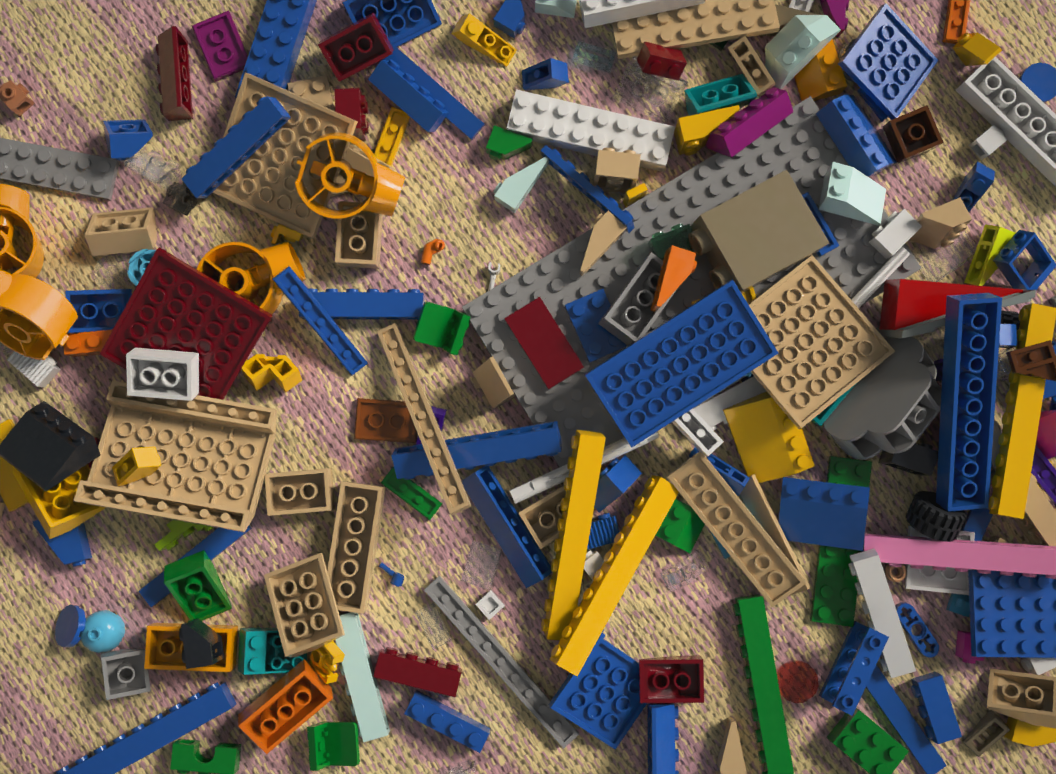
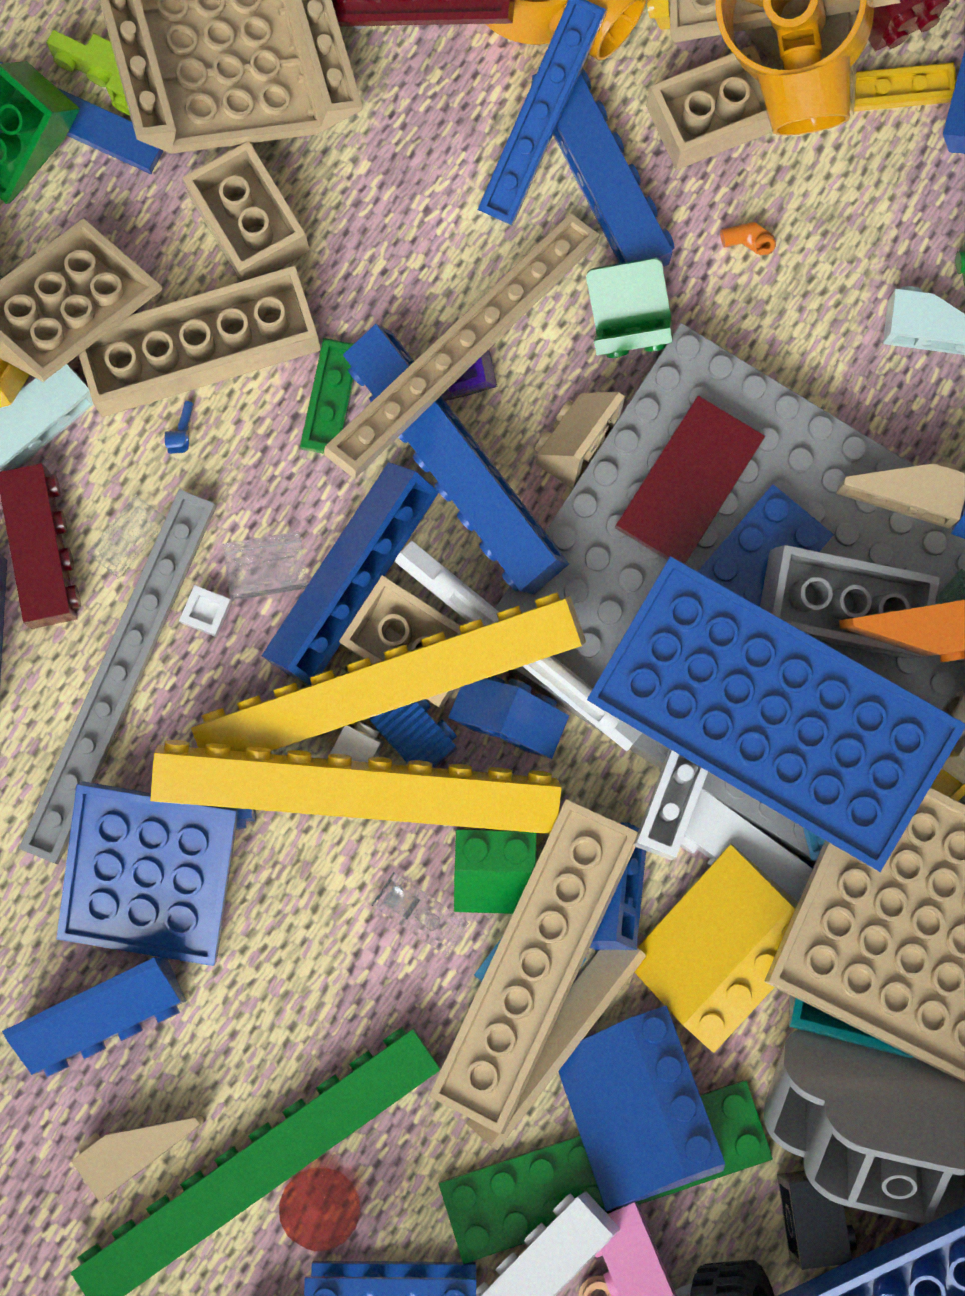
camera: 65 degrees right, 5 degrees down
(262, 369) = (417, 65): yellow brick -> none
(384, 421) = (425, 291): dark orange tile -> none
(493, 274) = (764, 354): white hand -> none
(672, 679) = (219, 976): dark red slope -> none

